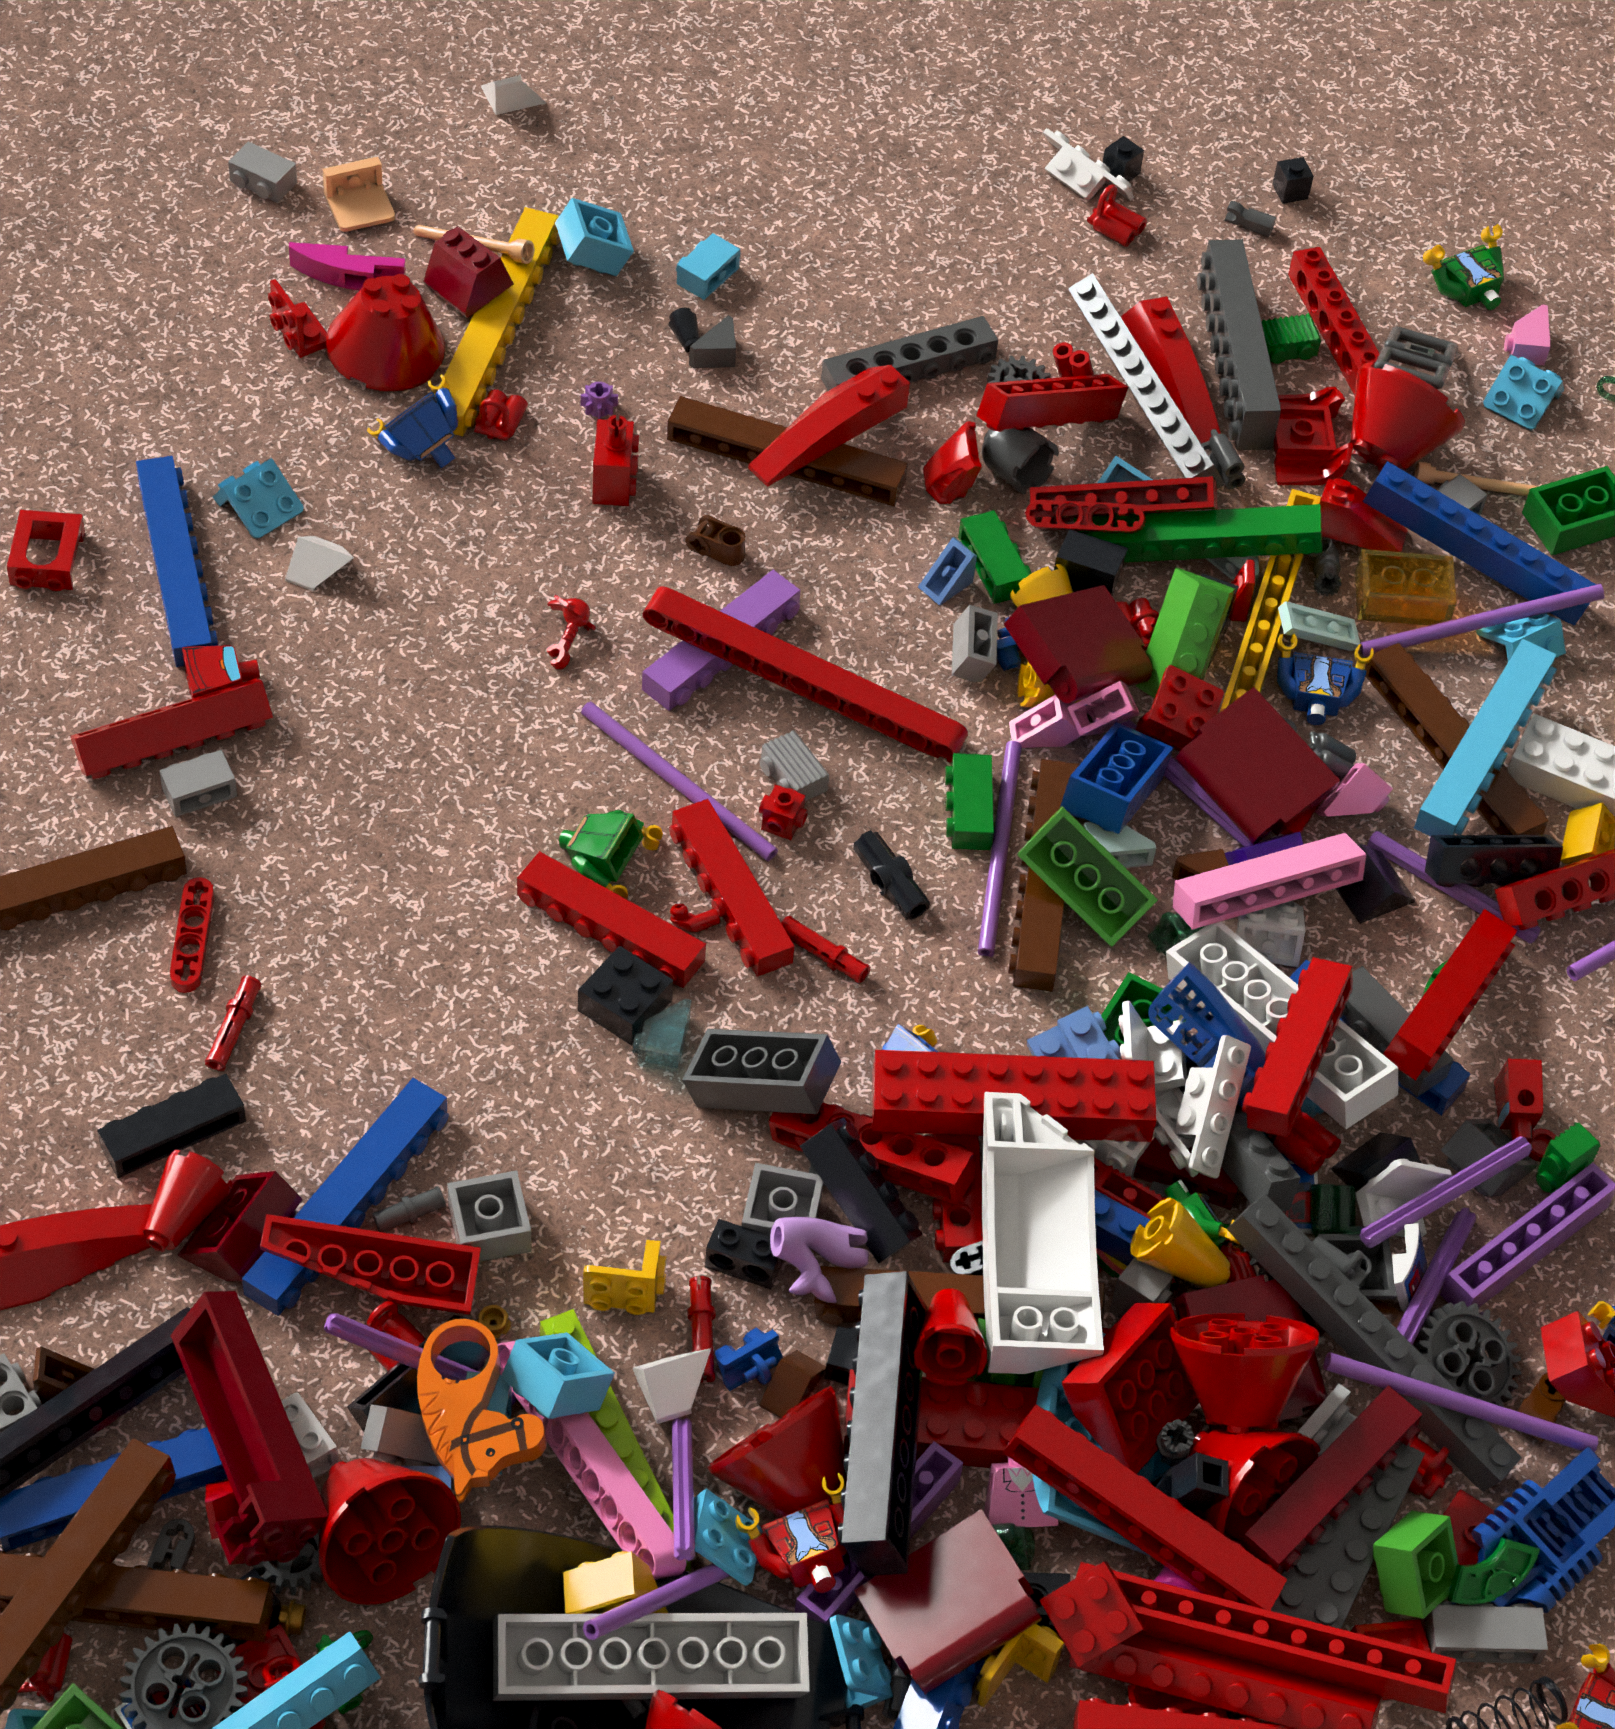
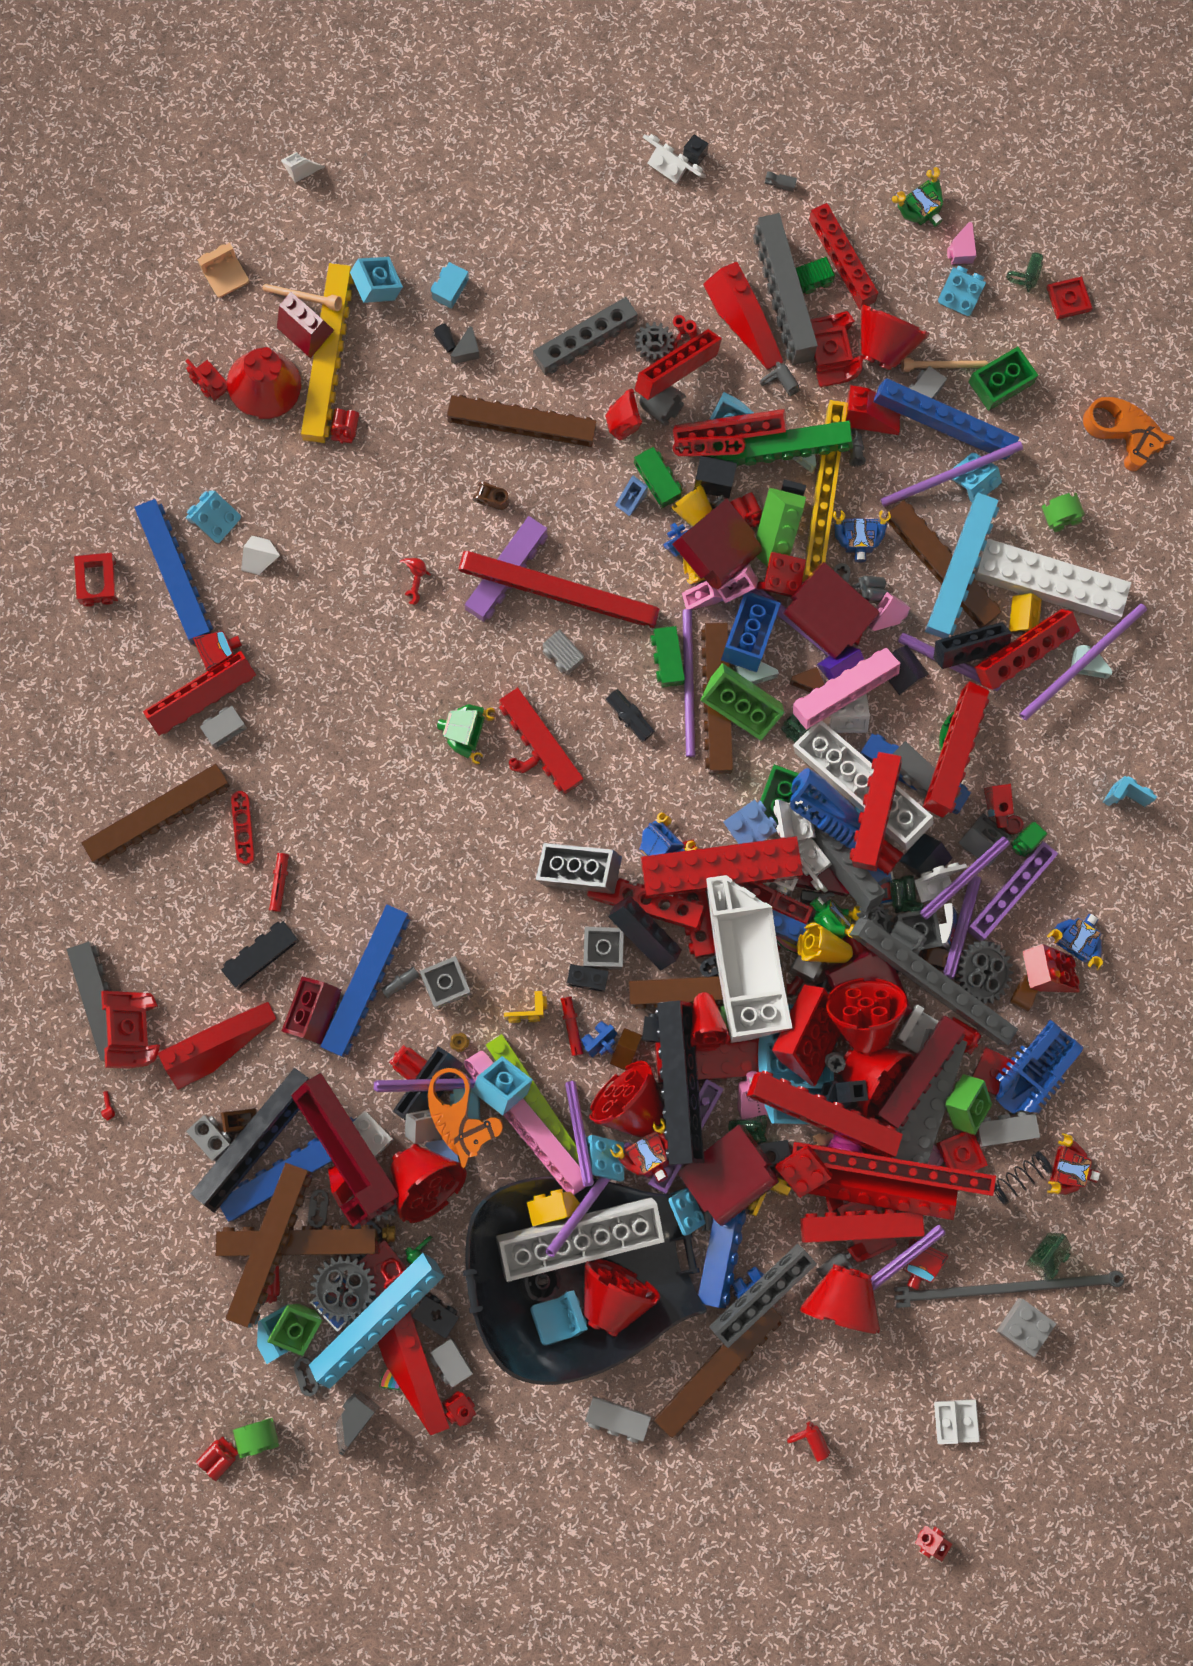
camera: 10 degrees left, 25 degrees up
(184, 1198) = (277, 1005): red cone -> none
(262, 172) = (159, 262): light grey brick -> none
(336, 267) = (219, 328): dark pink slope -> none
(381, 1263) = (393, 1028): red wedge -> none
(422, 427) = (300, 448): blue torso -> none
(599, 399) = (401, 408): medium lavender gear -> none
(609, 918) = (475, 775): red brick -> none
(615, 462) = (421, 454): red brick -> none
(624, 994) = (493, 825): black brick -> none
(664, 1038) = (520, 848): clear light blue slope -> none
(672, 1383) = (561, 1062): white slope -> none
(677, 779) = (497, 671): medium lavender piece -> none
(783, 812) = (562, 691): red brick -> none
(833, 421) = (546, 397): red wedge -> none
(834, 1242) = (632, 968): lavender piece -> none
(835, 956) = (600, 772): red pin -> none
(974, 644) = (655, 546): light grey brick -> none
(1116, 220) = (697, 198): red piece -> none
(1142, 380) = (731, 334): brick -> none
(1211, 1105) = (830, 855): white bracket -> none
(1246, 581) = (808, 478): red slope -> none
(1292, 180) = (804, 146): black brick -> none
(1319, 626) = (856, 496): light aqua plate -> none
(1405, 587) = (904, 457): clear yellow brick -> none
(1418, 355) = (895, 283): dark grey bar -> none
(1459, 1402) = (983, 1012): medium lavender piece -> none
(1494, 1575) = (1010, 1101): green tile -> none

